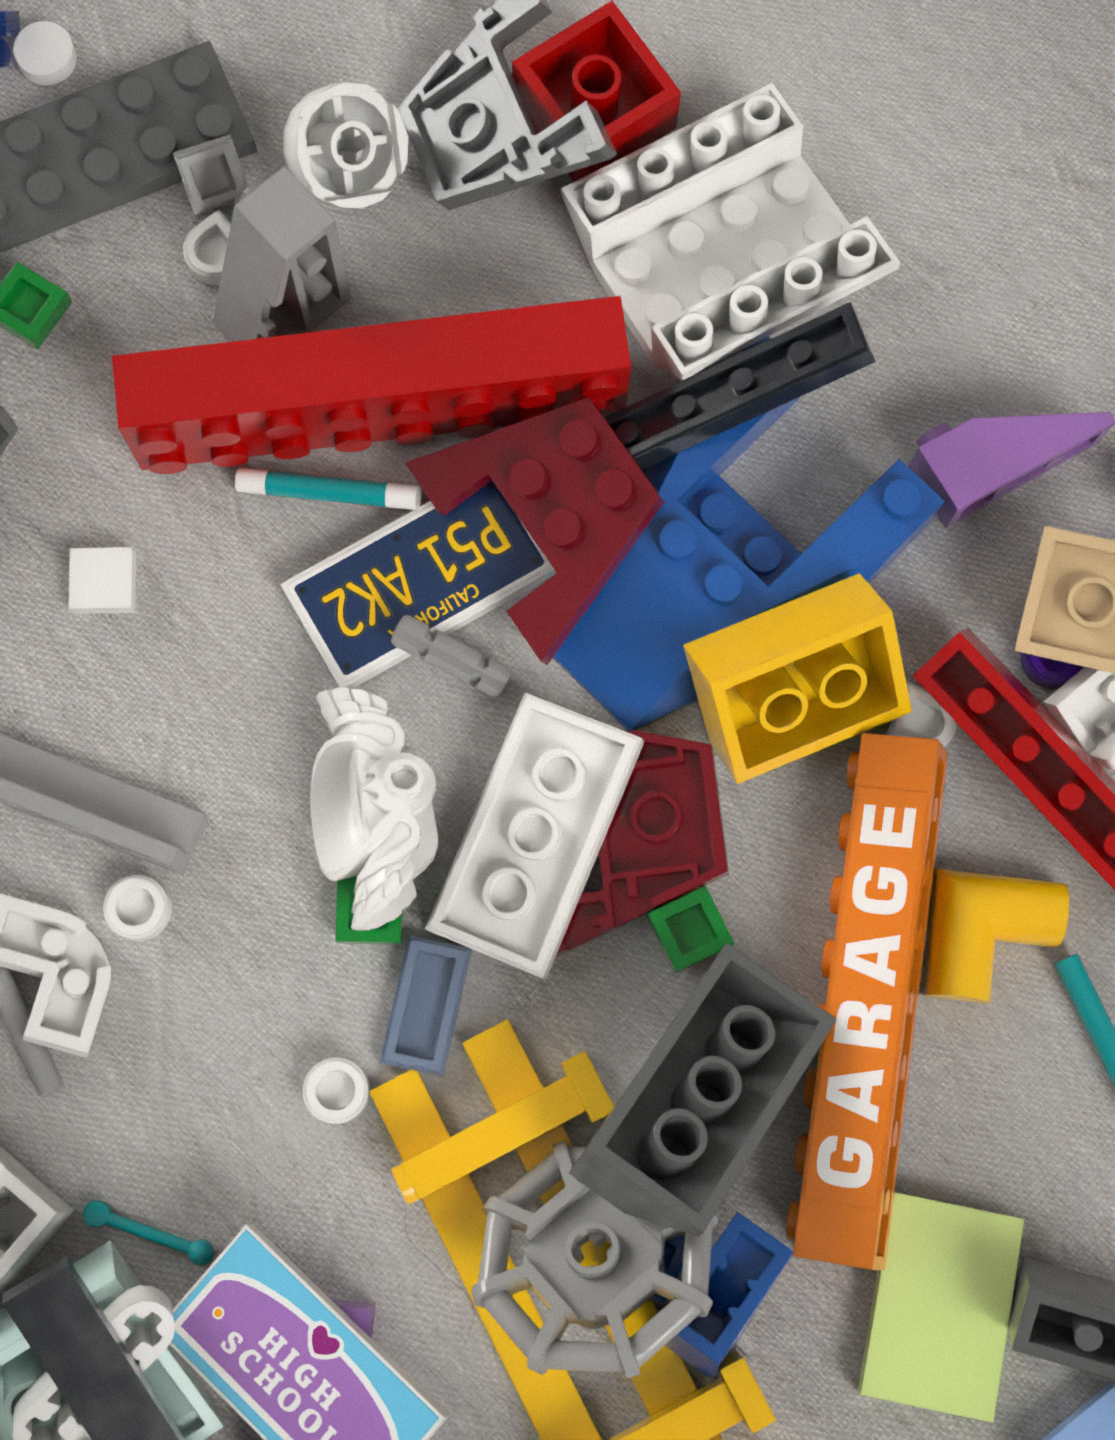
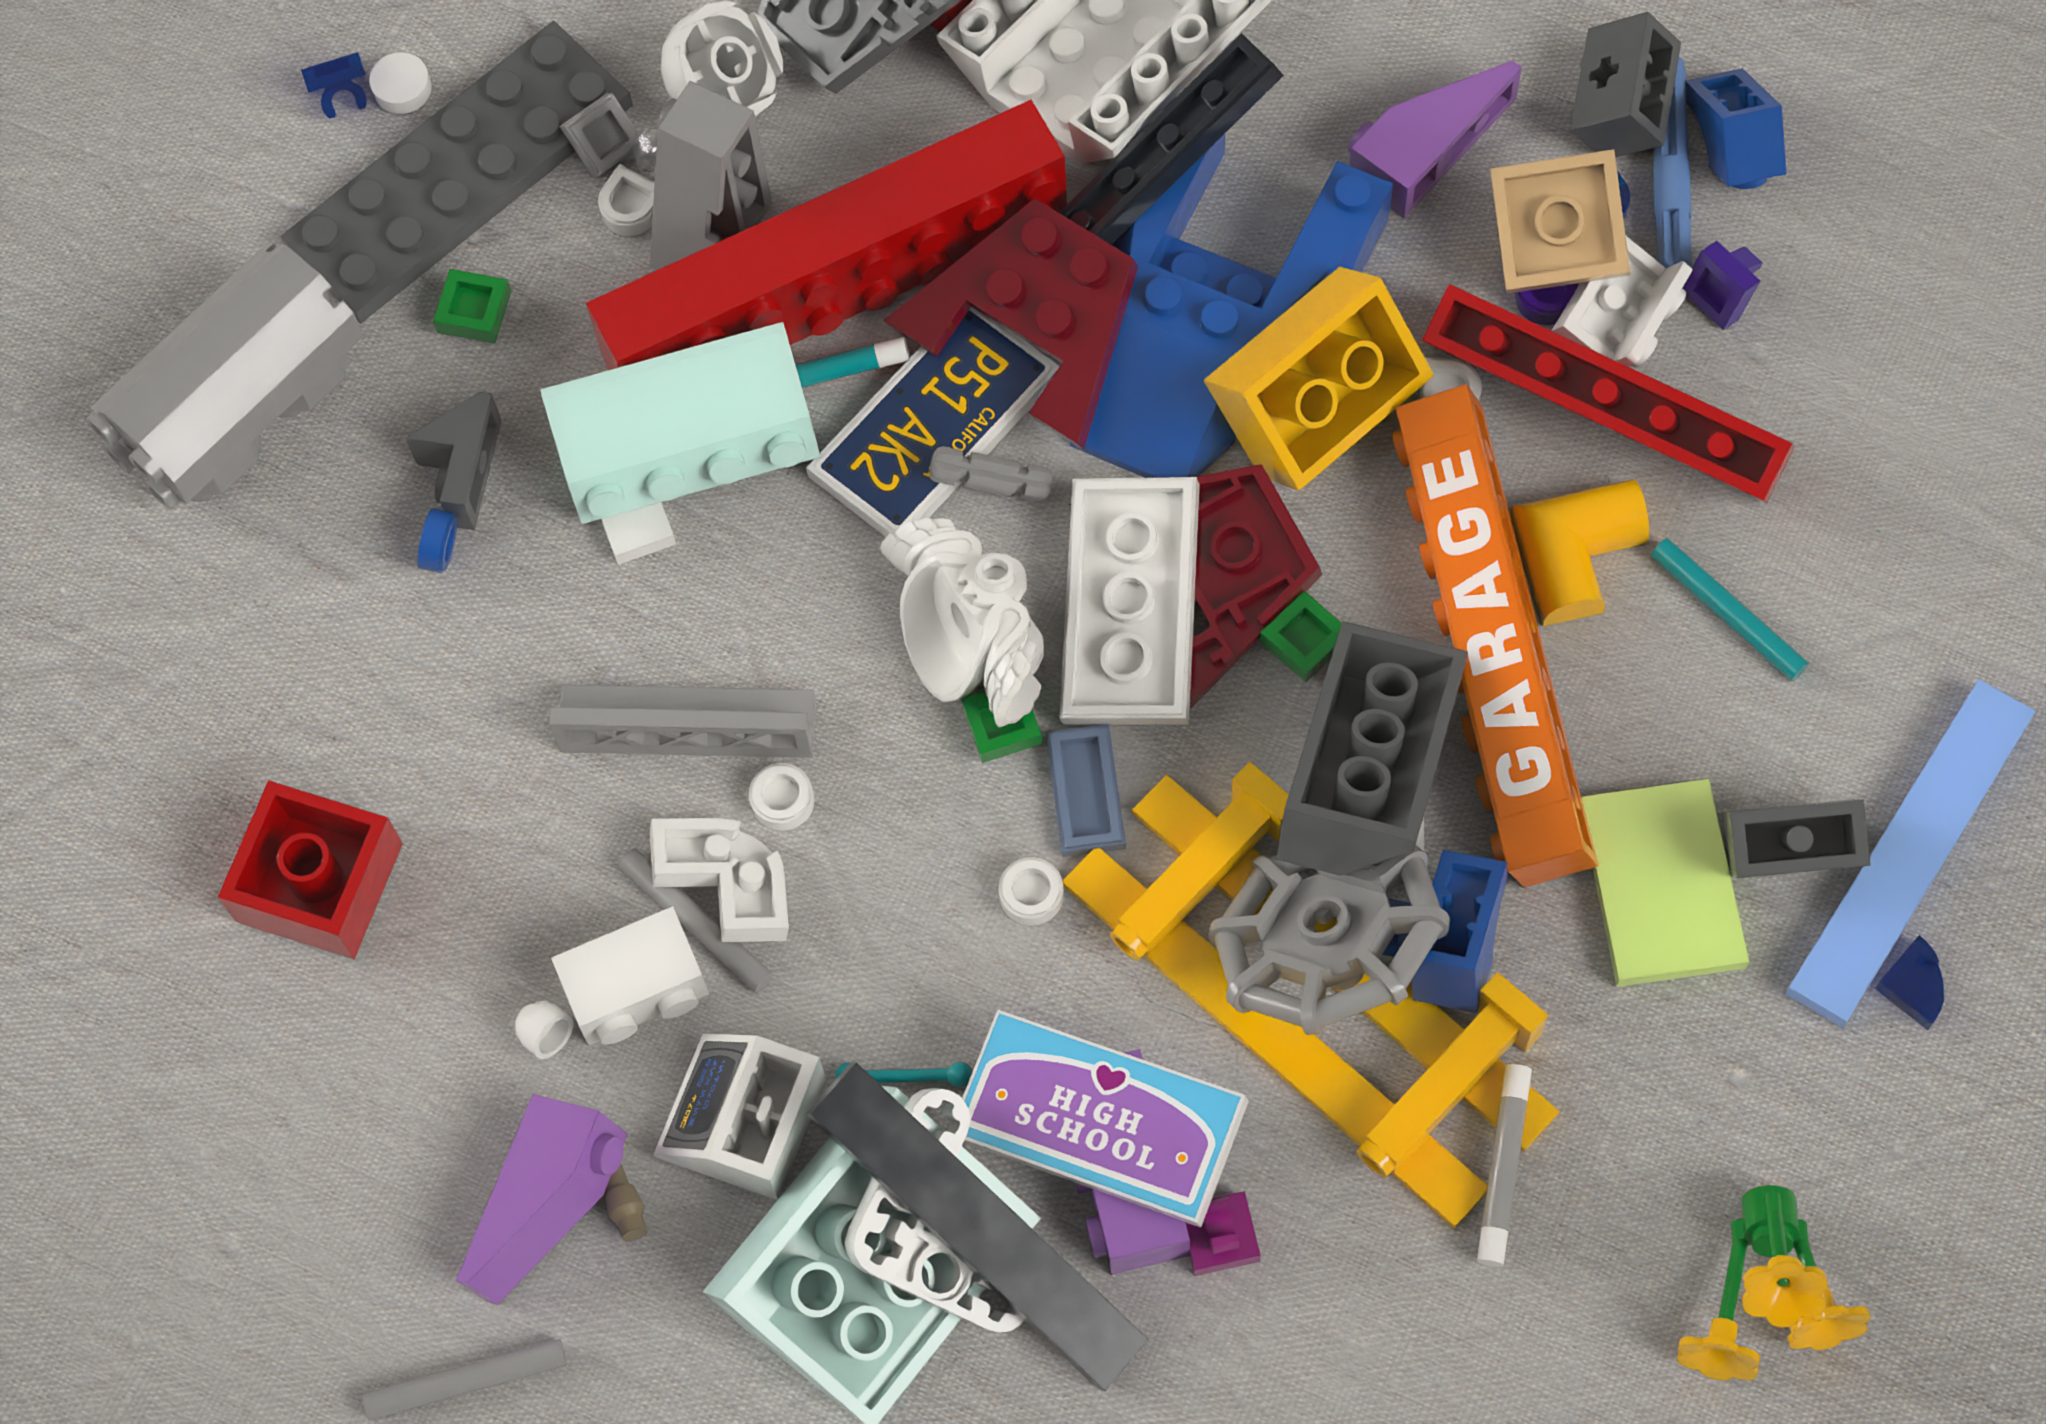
camera: 10 degrees left, 10 degrees down
(169, 504) = (680, 423): none -> light aqua slope

